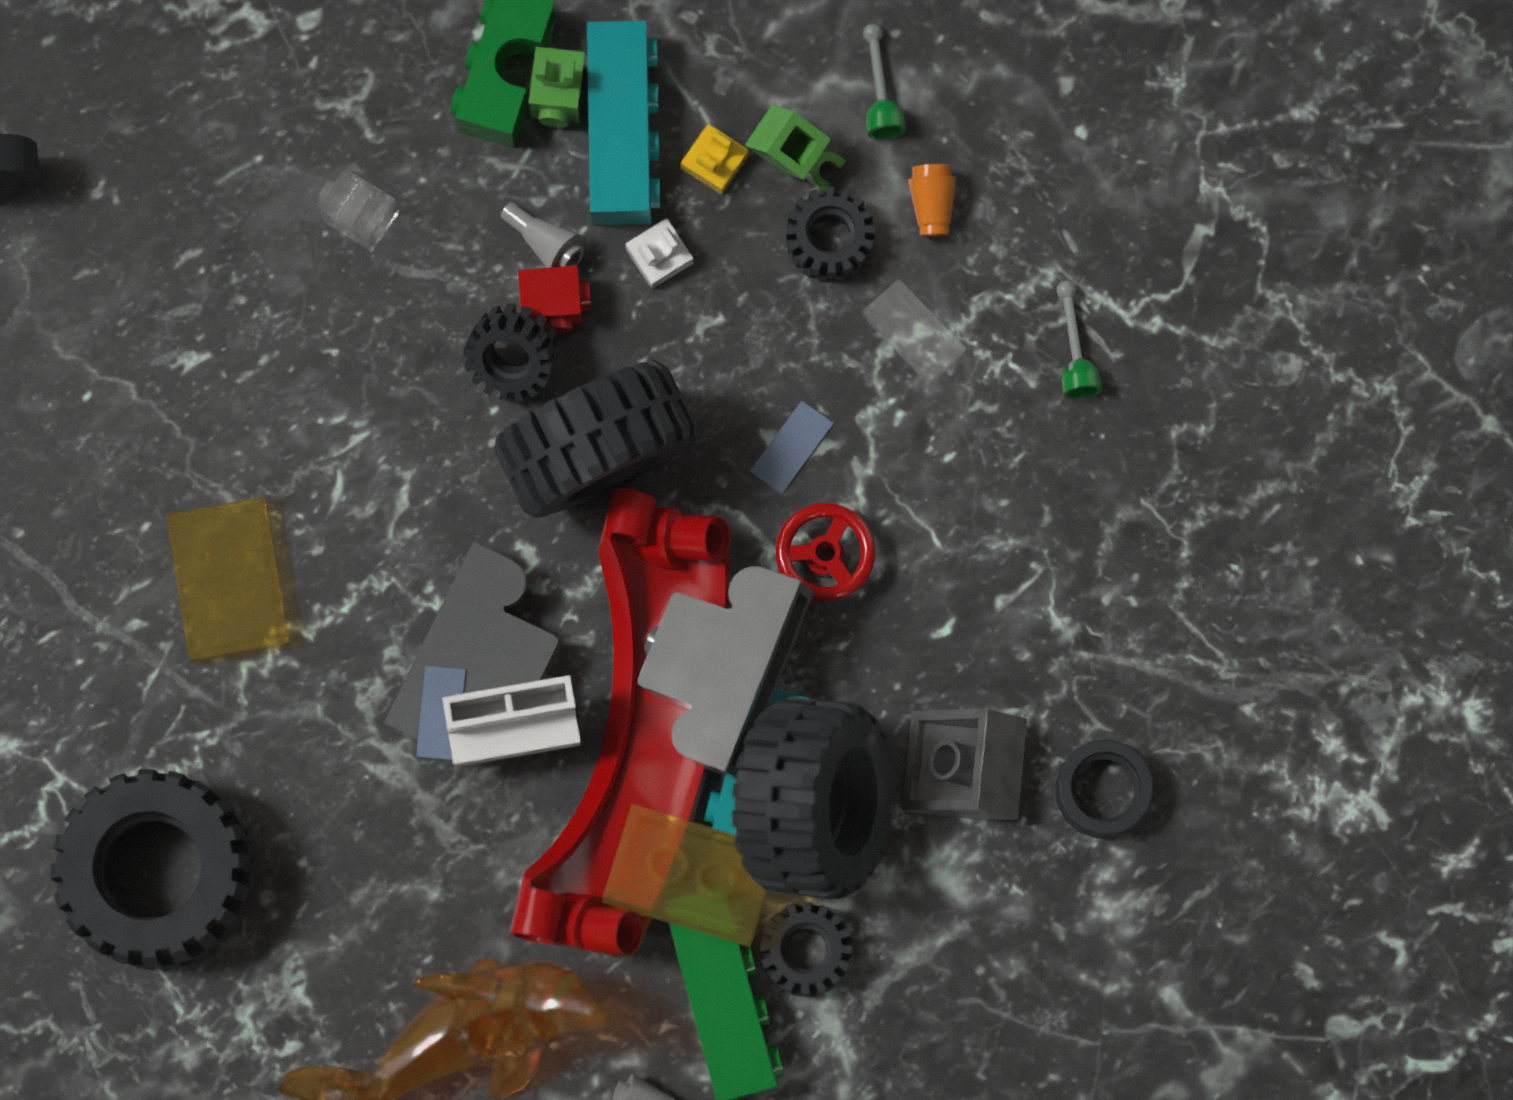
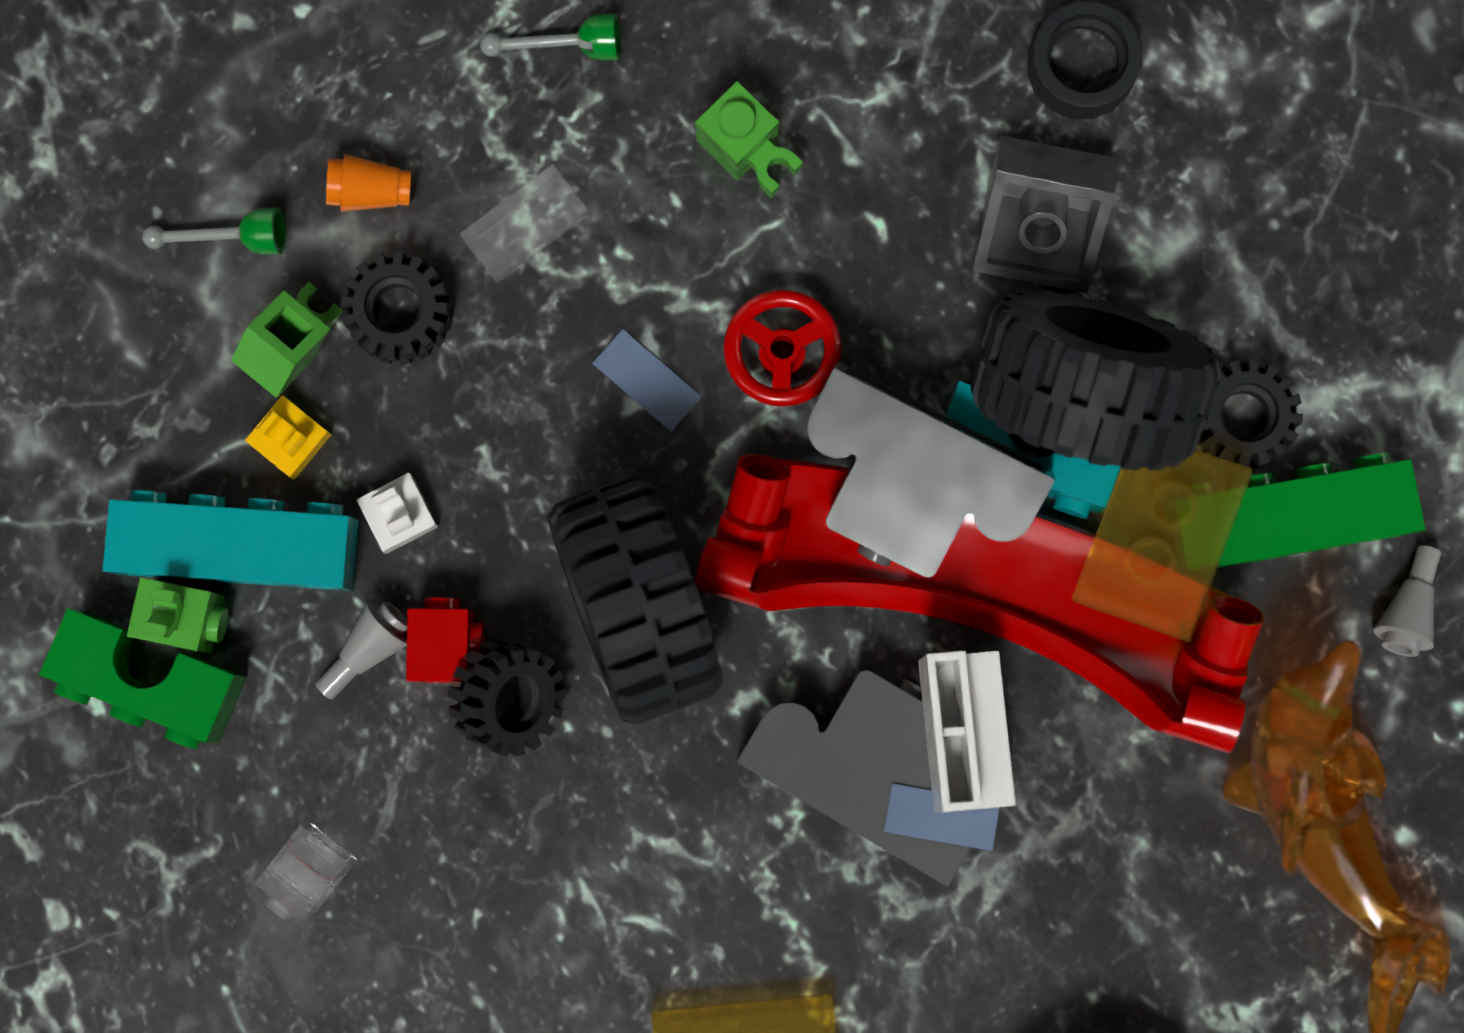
camera: 80 degrees left, 5 degrees up
(1002, 504) = (743, 137): none -> bright green brick

